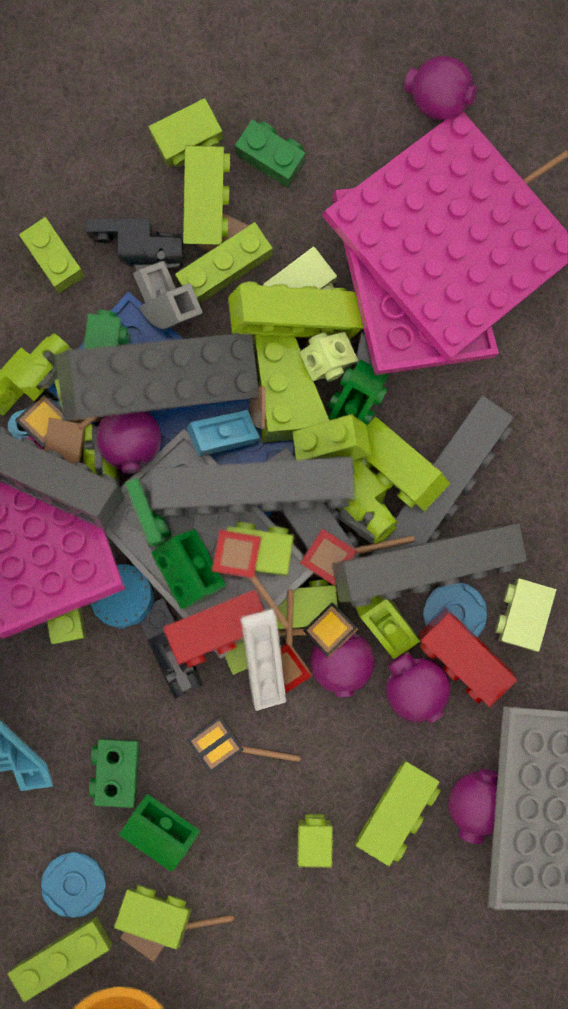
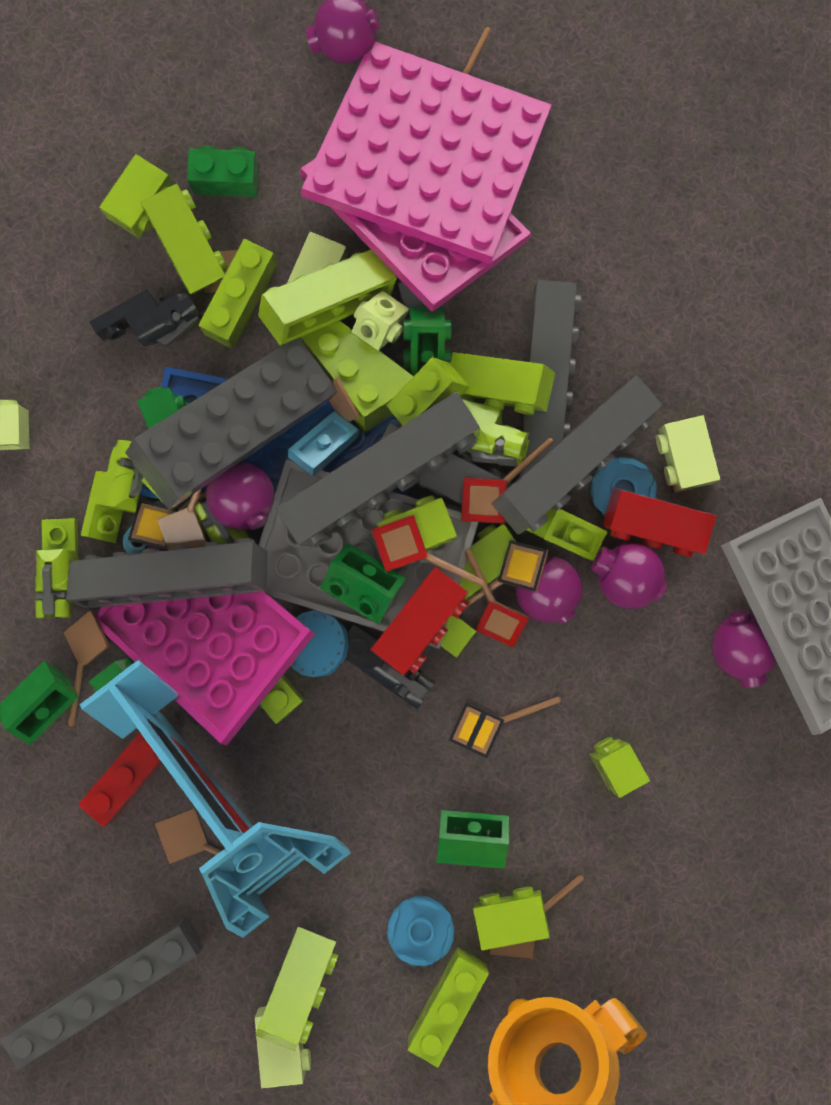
camera: 25 degrees left, 0 degrees up
(52, 255) = (77, 372): lime brick -> none
(119, 773) = (404, 806): green brick -> none
(153, 525) = (307, 560): green plate -> none
(163, 302) = (203, 356): light grey brick -> none
(263, 659) = (478, 626): white tile -> none
(398, 813) = (676, 697): lime brick -> none

